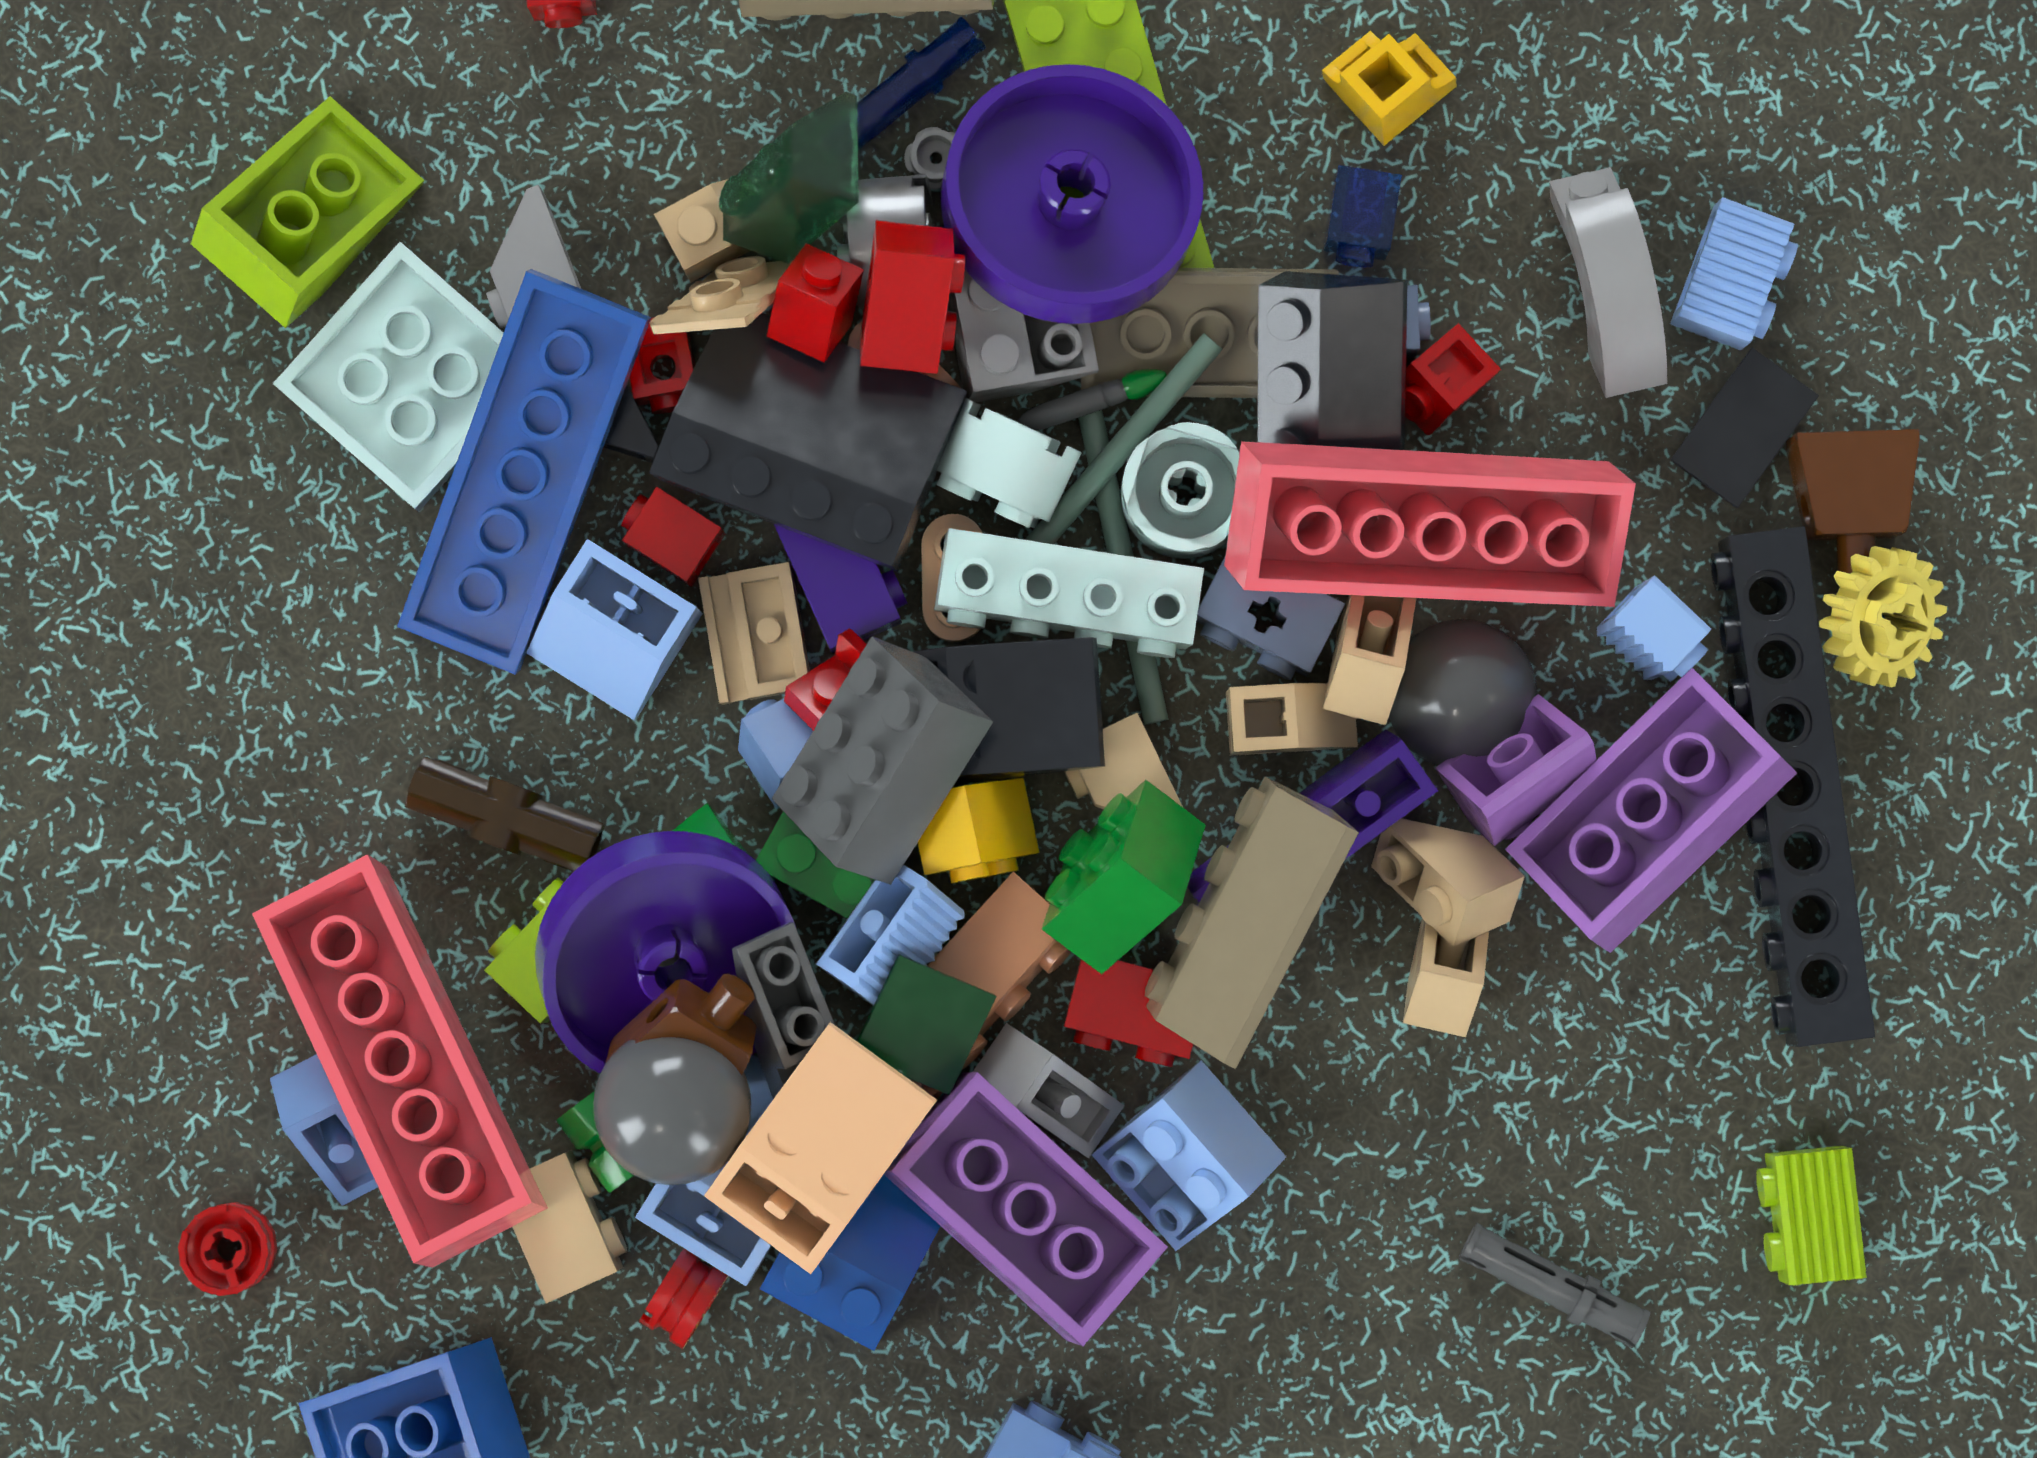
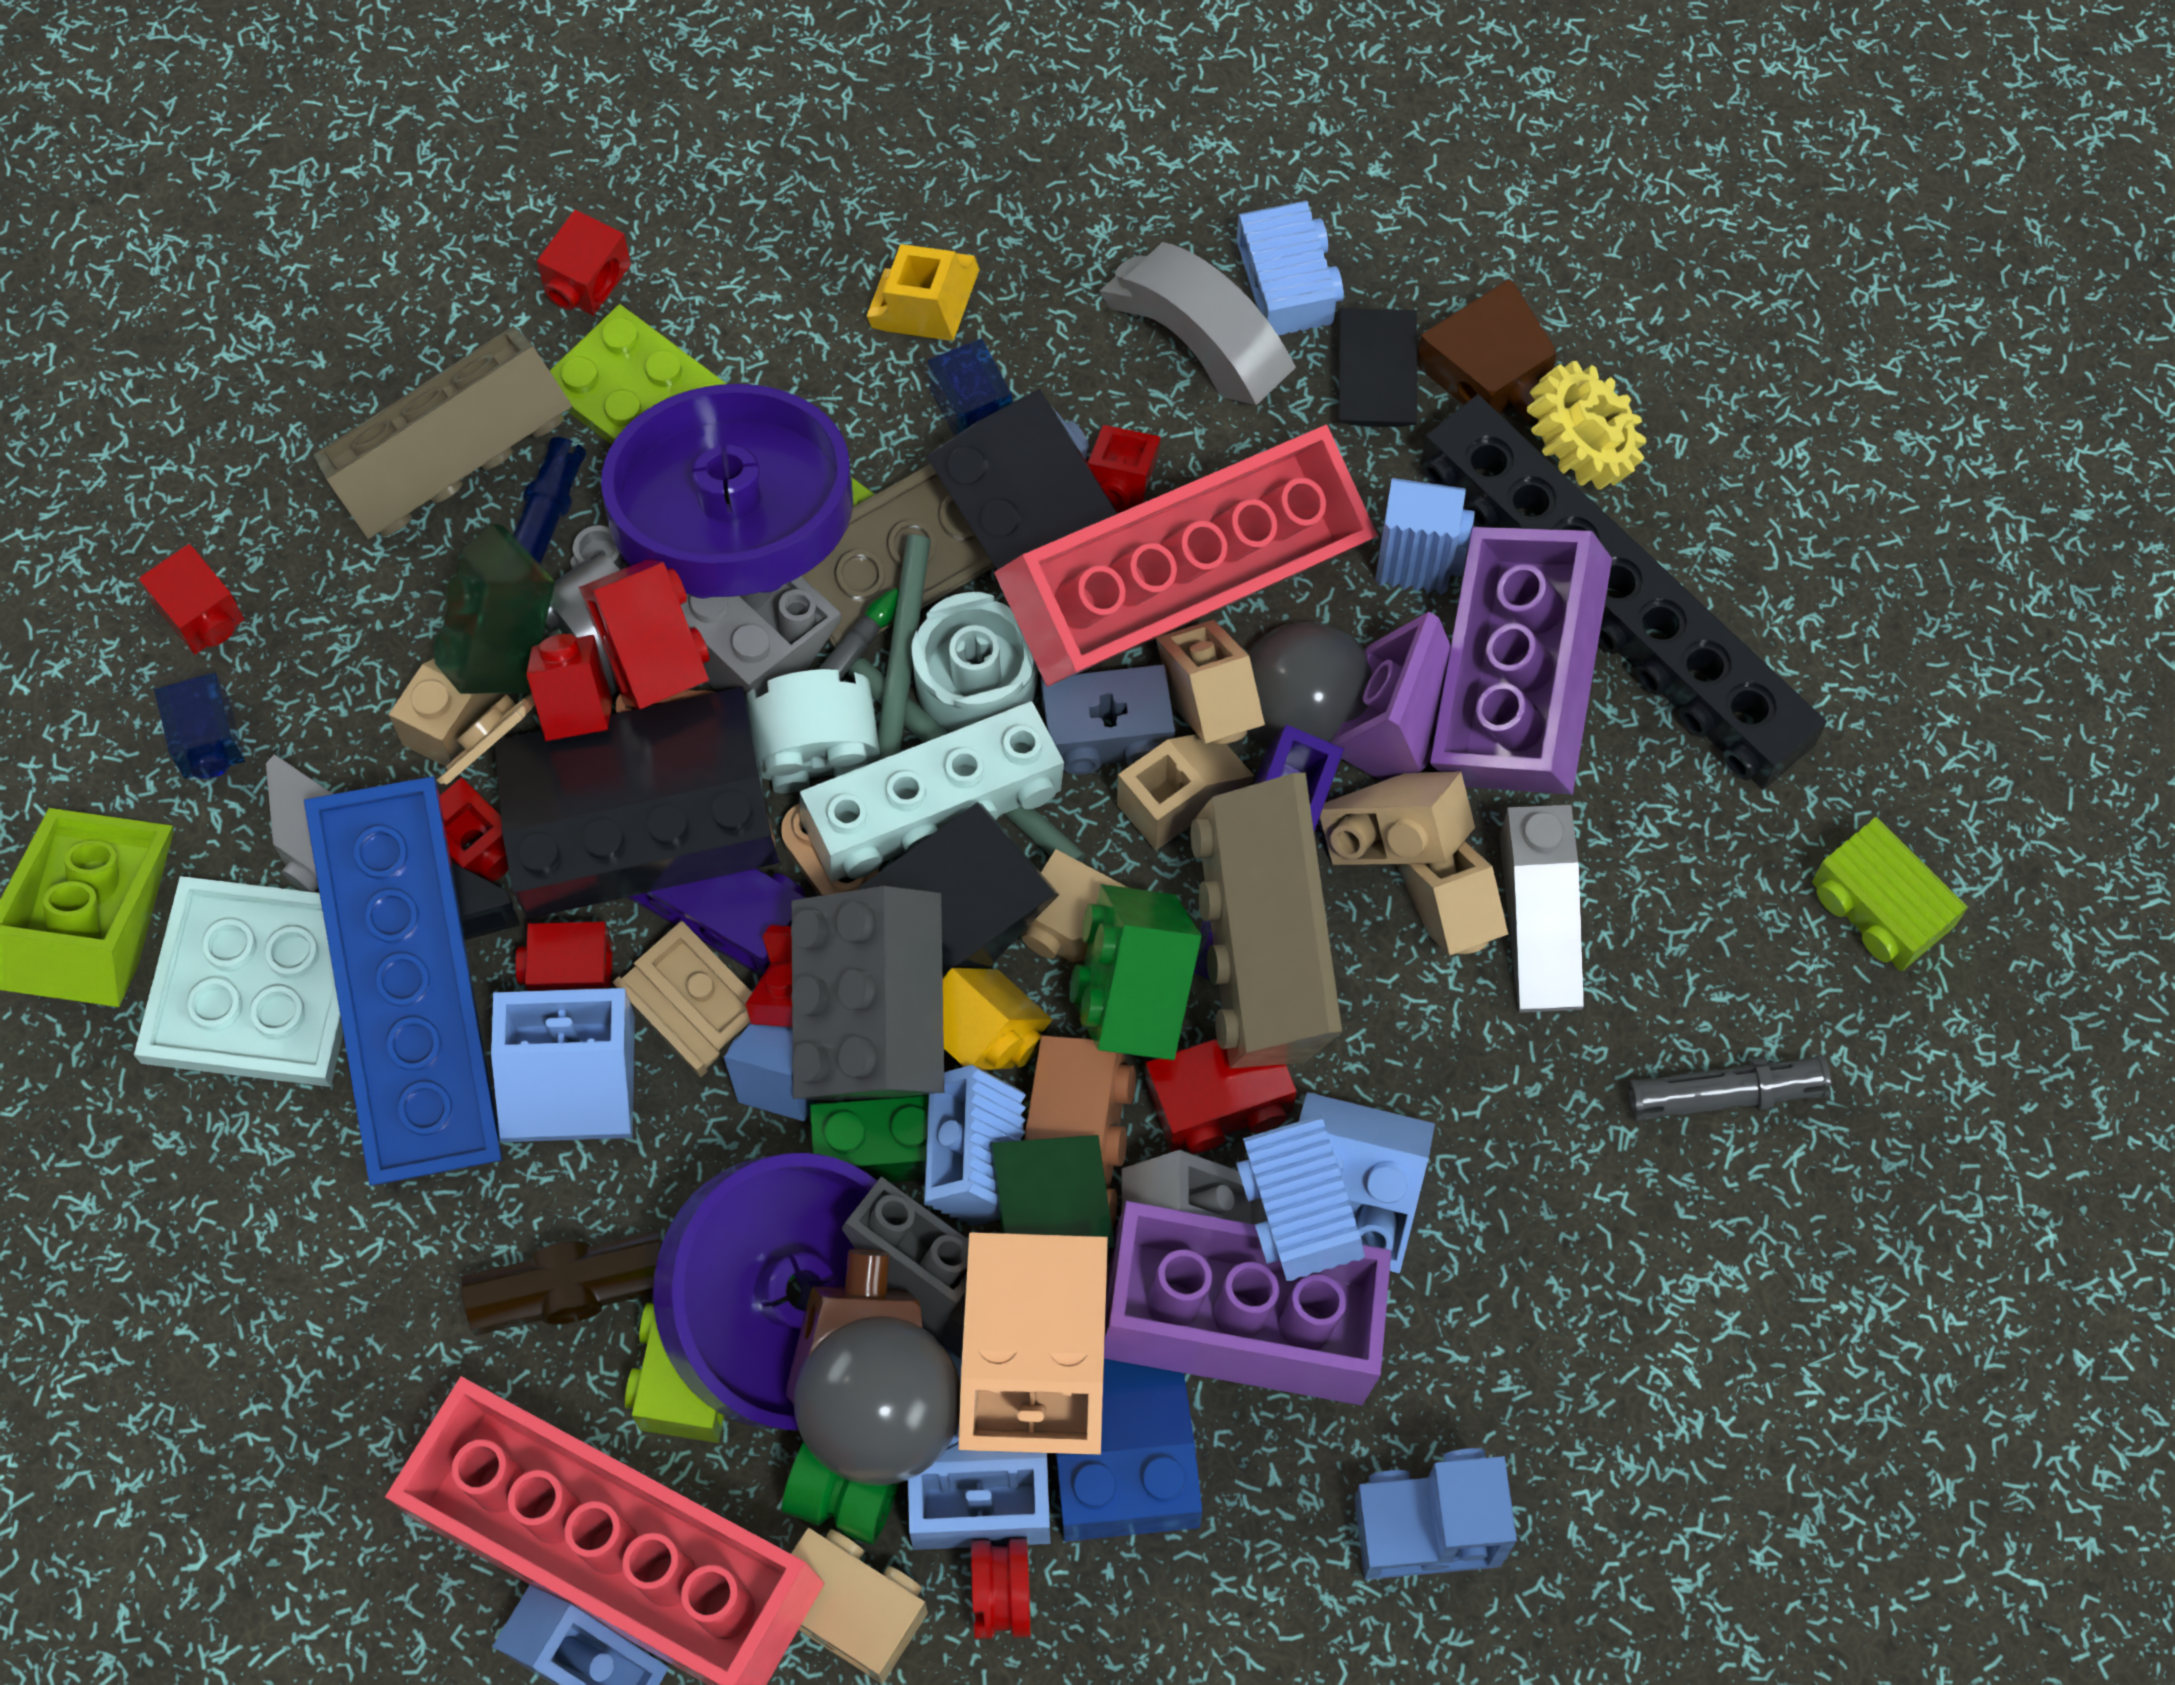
camera: 35 degrees left, 20 degrees down
(495, 107) = (200, 726): none -> clear blue brick
(1115, 1168) = (1302, 1197): none -> light blue brick
(1514, 1031) = (1543, 906): none -> slope

